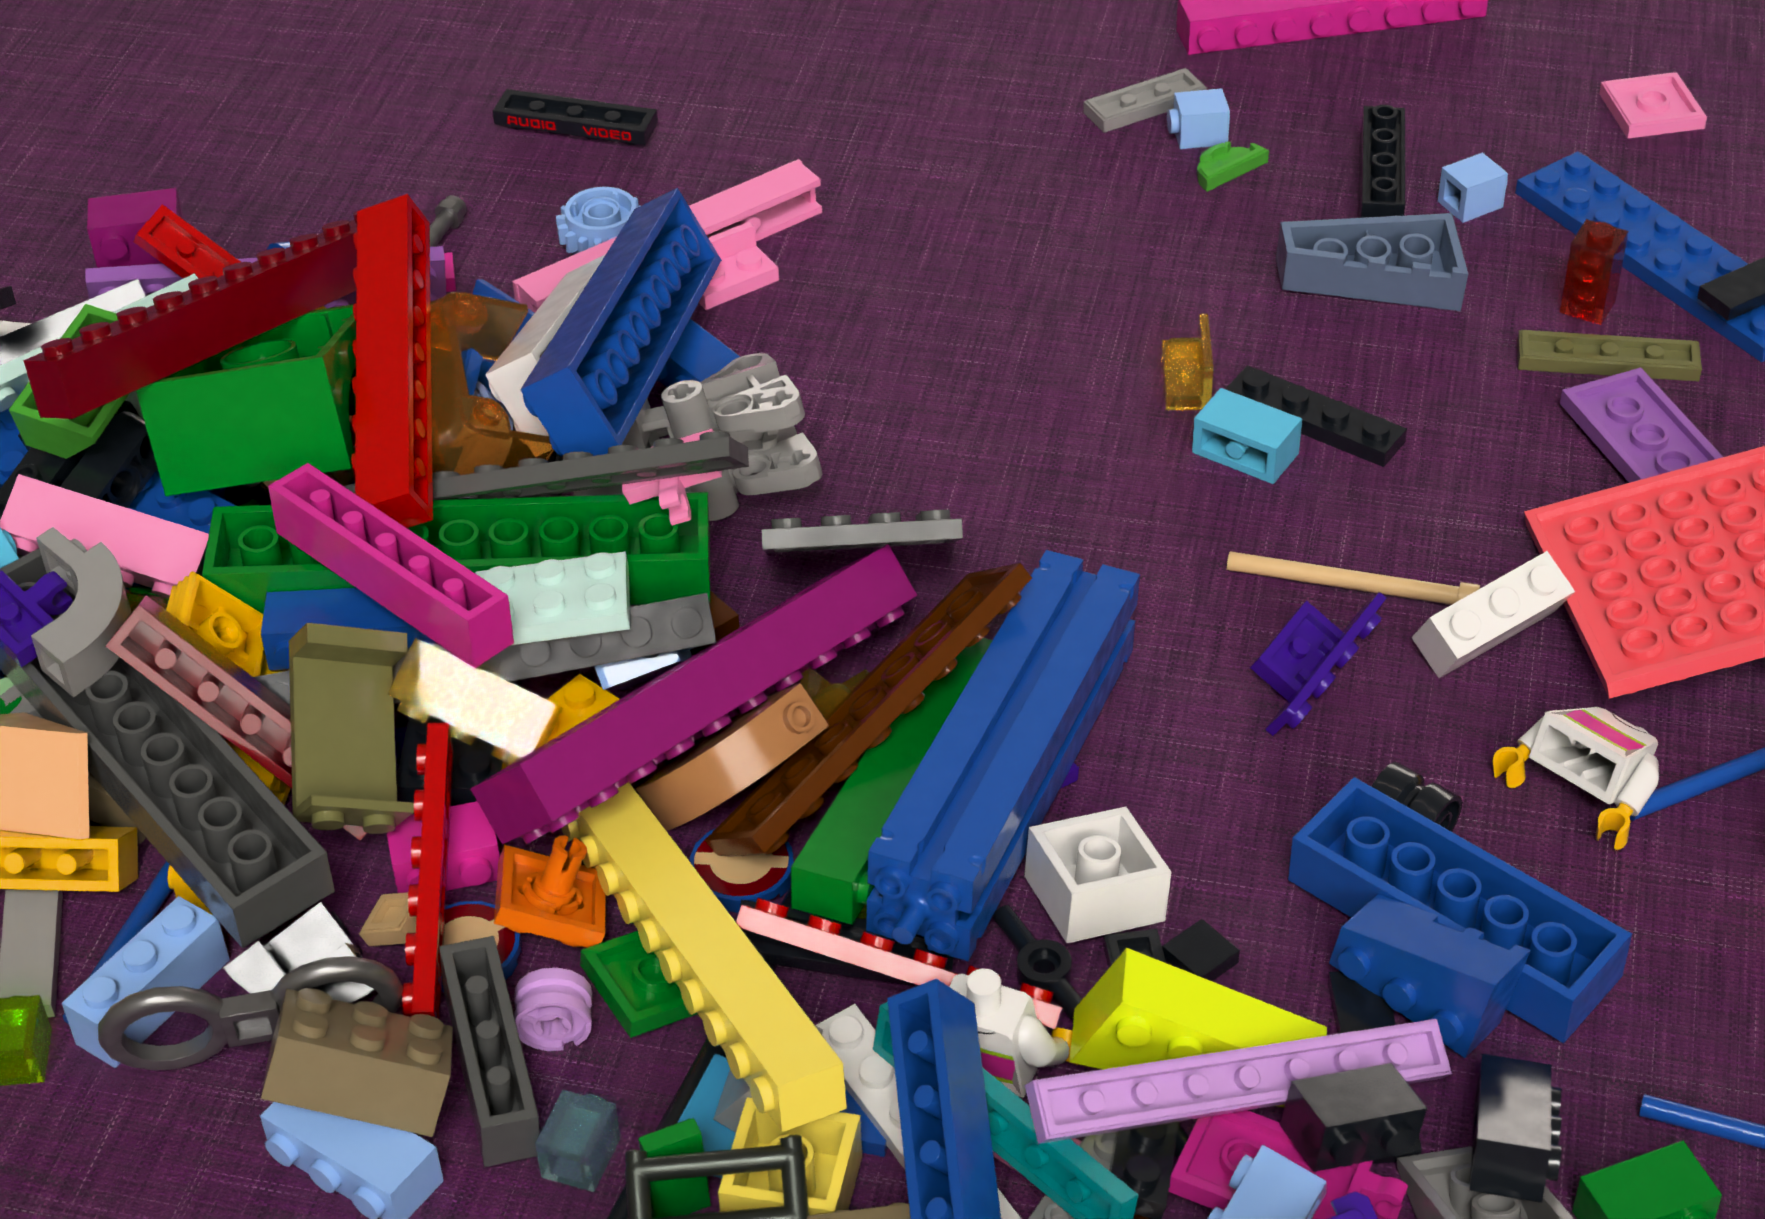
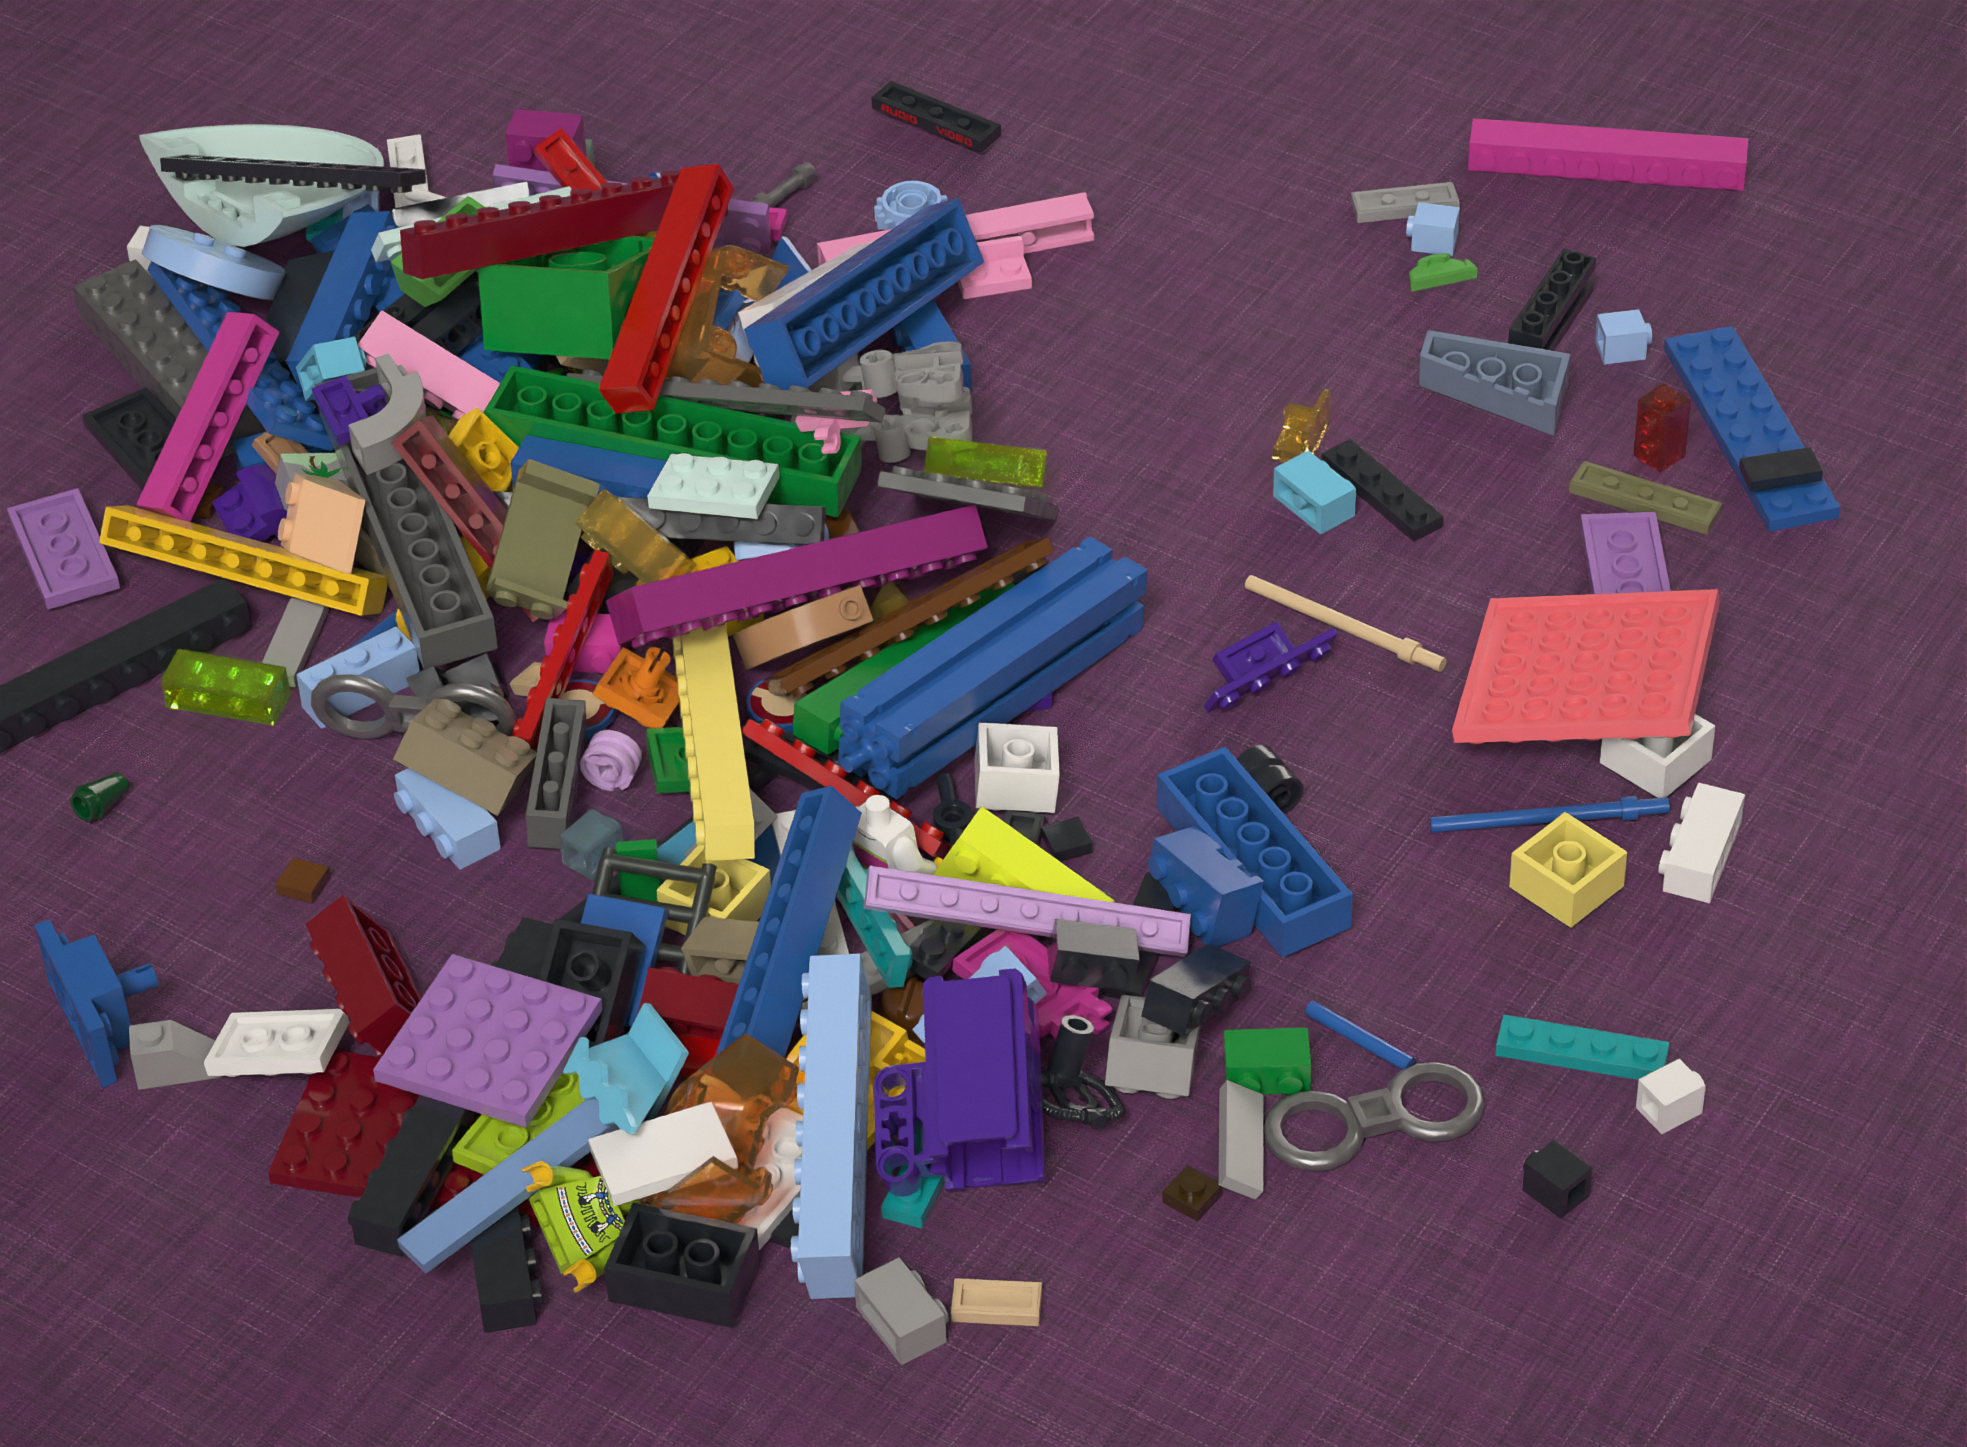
camera: 20 degrees right, 0 degrees up
(392, 565) = (606, 433): dark pink brick -> none
(853, 489) = (985, 461): none -> clear neon green brick
(1492, 614) = (1408, 664): white brick -> none
(1593, 753) = (1420, 779): white torso -> none
(1652, 105) = (1828, 300): bright pink tile -> none

